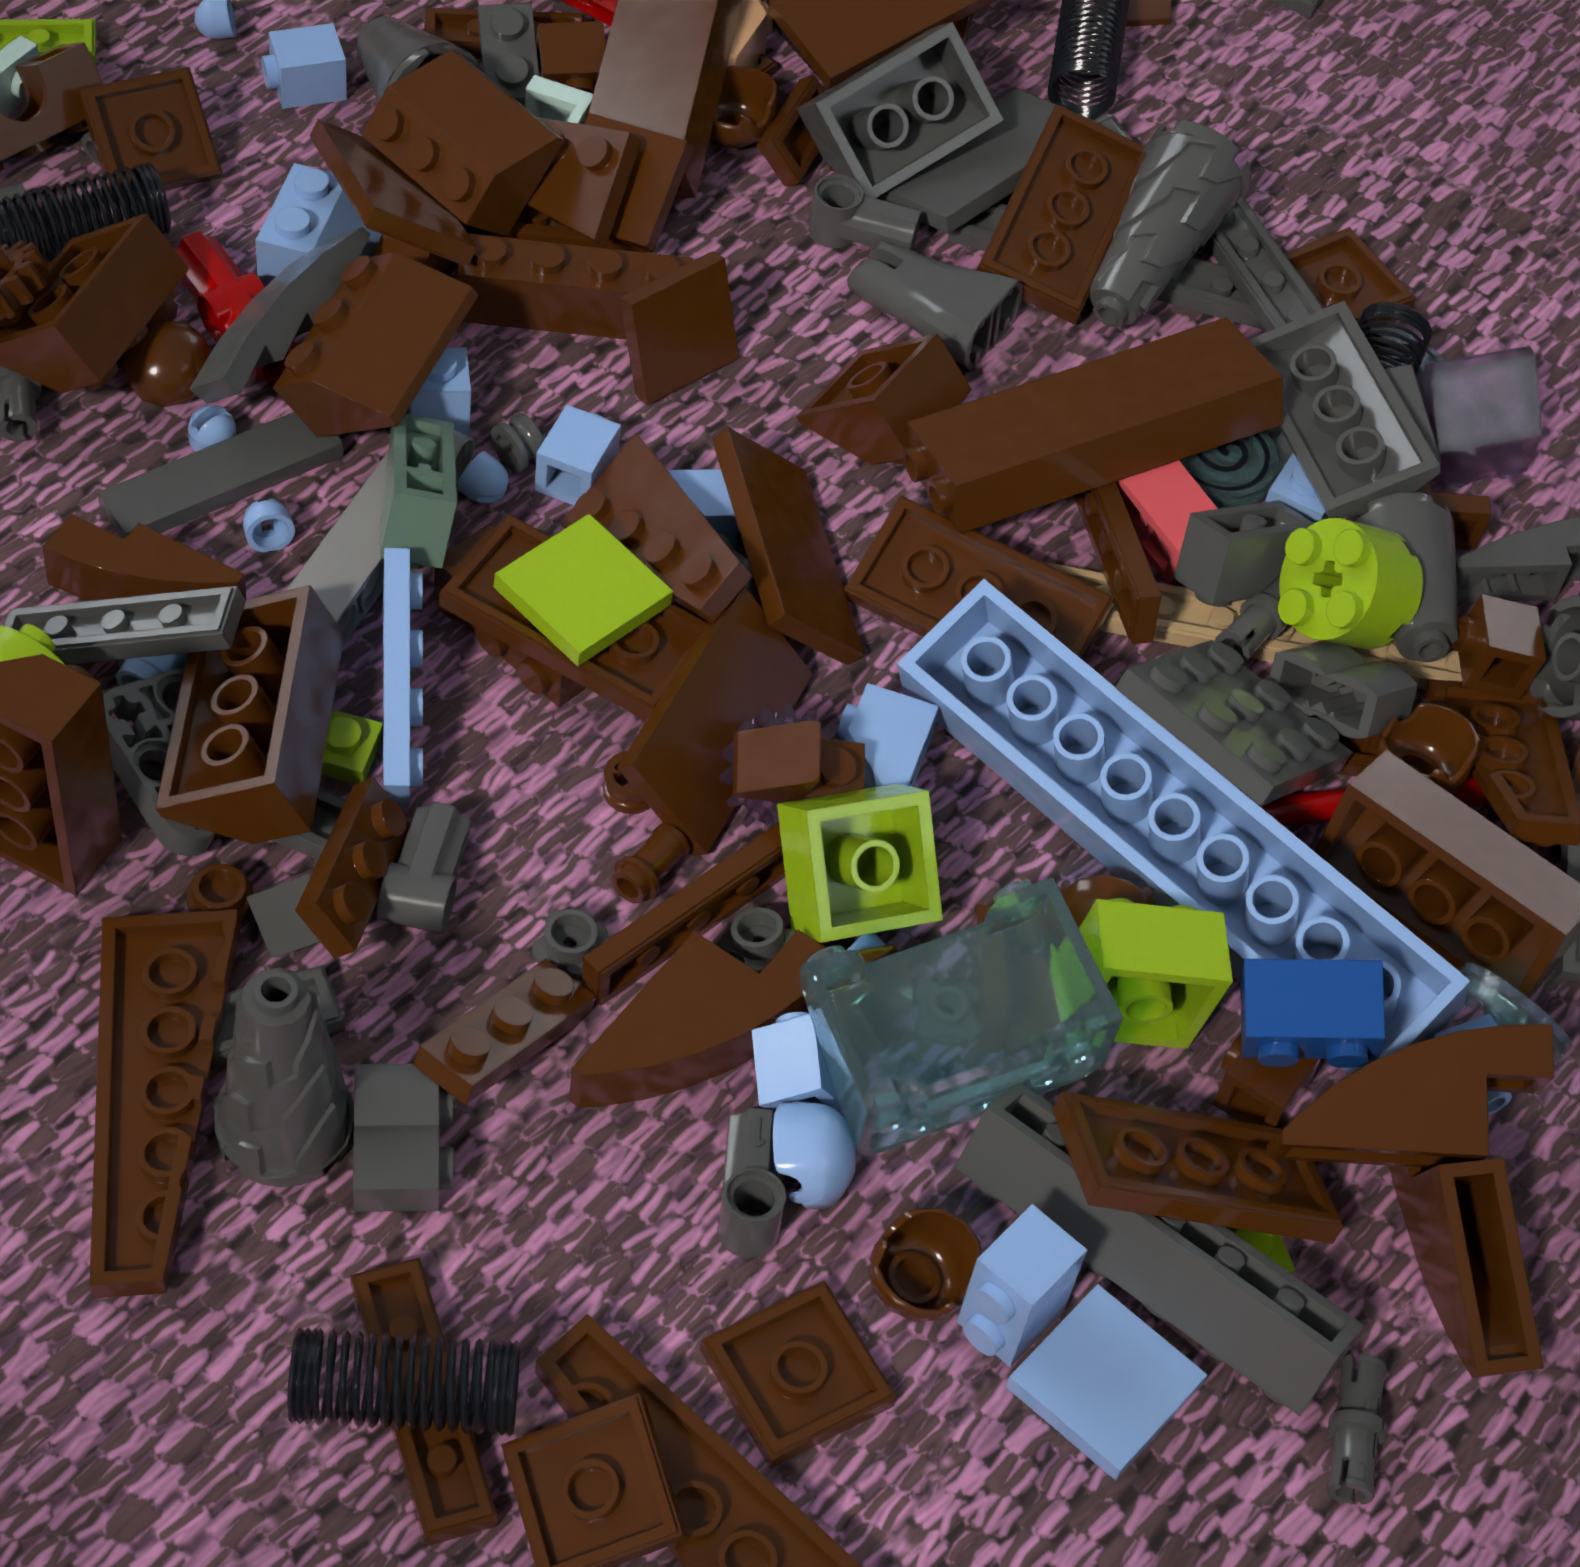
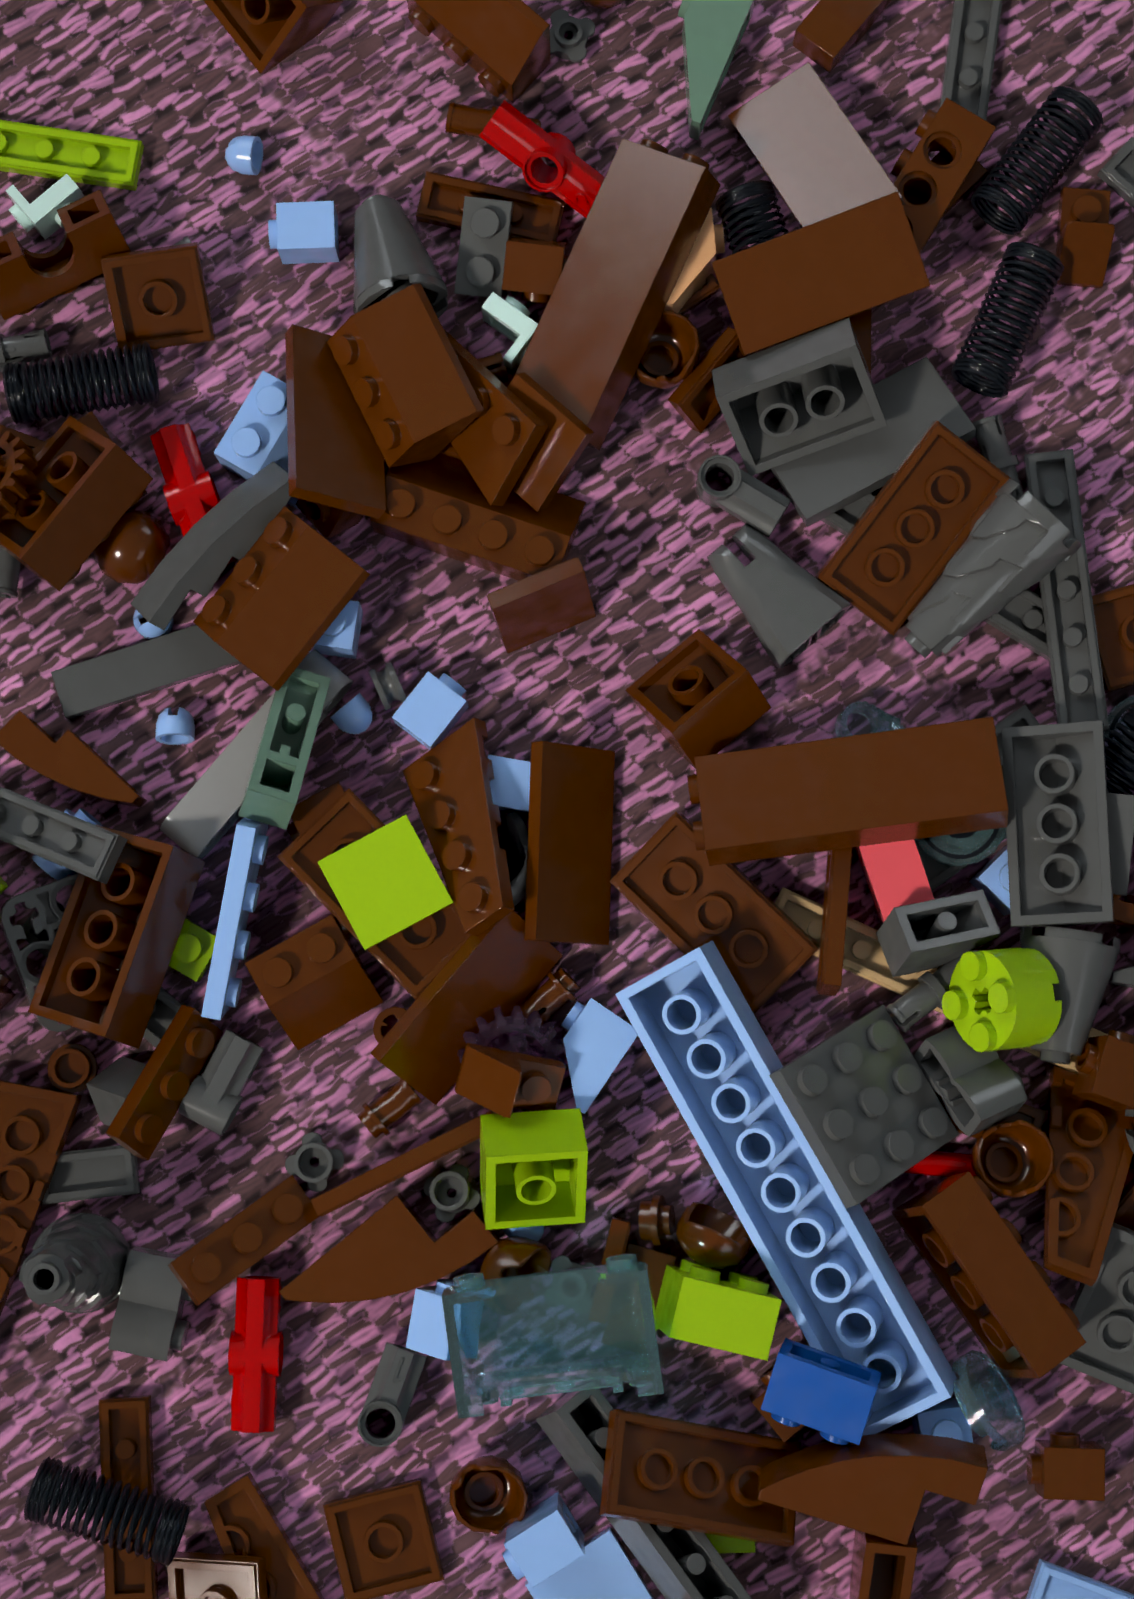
camera: 25 degrees right, 30 degrees up
(513, 740) = (314, 982): none -> reddish brown slope
(557, 1171) = (256, 1354): none -> red piece
(816, 1149) = (428, 1394): light blue hair -> none
(825, 697) = (551, 995): none -> reddish brown pin

